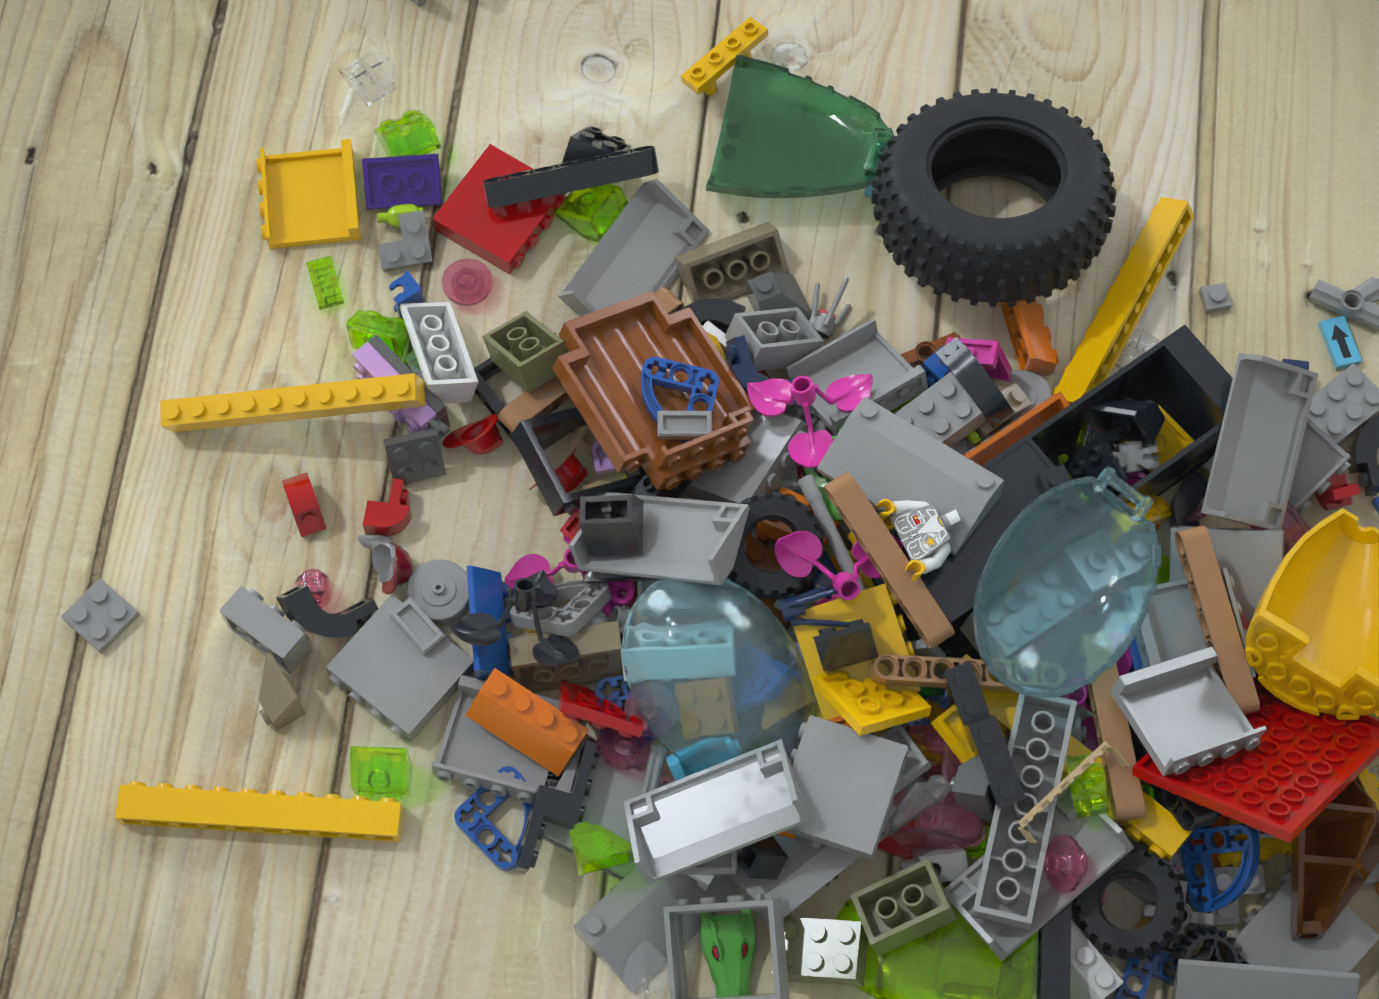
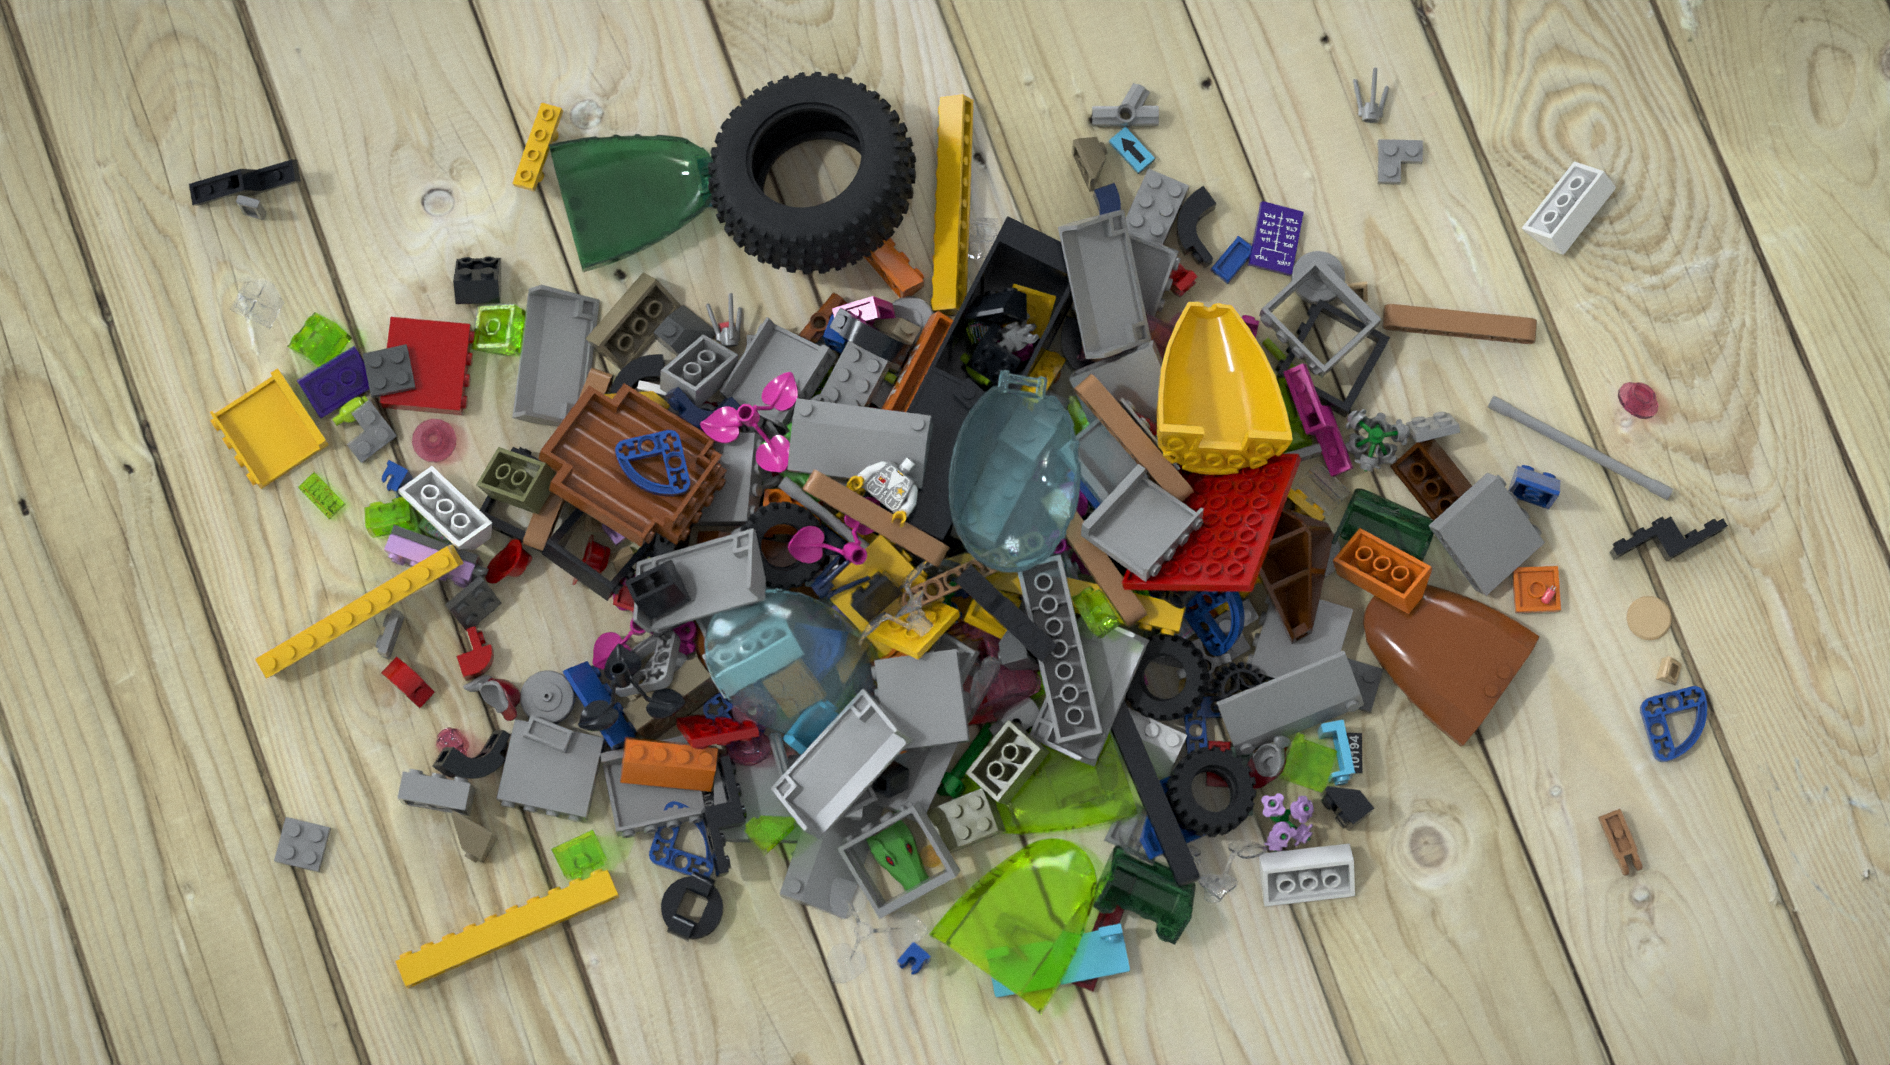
camera: 25 degrees left, 10 degrees up
(315, 445) = (386, 642): none -> light grey plate
(458, 192) = (389, 371): none -> dark grey plate
(492, 875) = (701, 887): none -> black piece
(570, 176) = (472, 315): black beam -> none
(619, 614) = (694, 649): light grey plate -> none
(683, 424) = (671, 485): light grey tile -> none
(762, 972) = (929, 857): none -> clear yellow plate
(829, 899) = (951, 782): none -> green piece
(880, 691) = (916, 619): none -> clear plant
(1065, 863) = (1106, 675): clear pink piece -> none
(1070, 778) = (1081, 615): tan piece -> none
(1215, 298) = (1020, 160): light grey plate -> none
(1291, 326) = (1089, 158): none -> dark tan slope

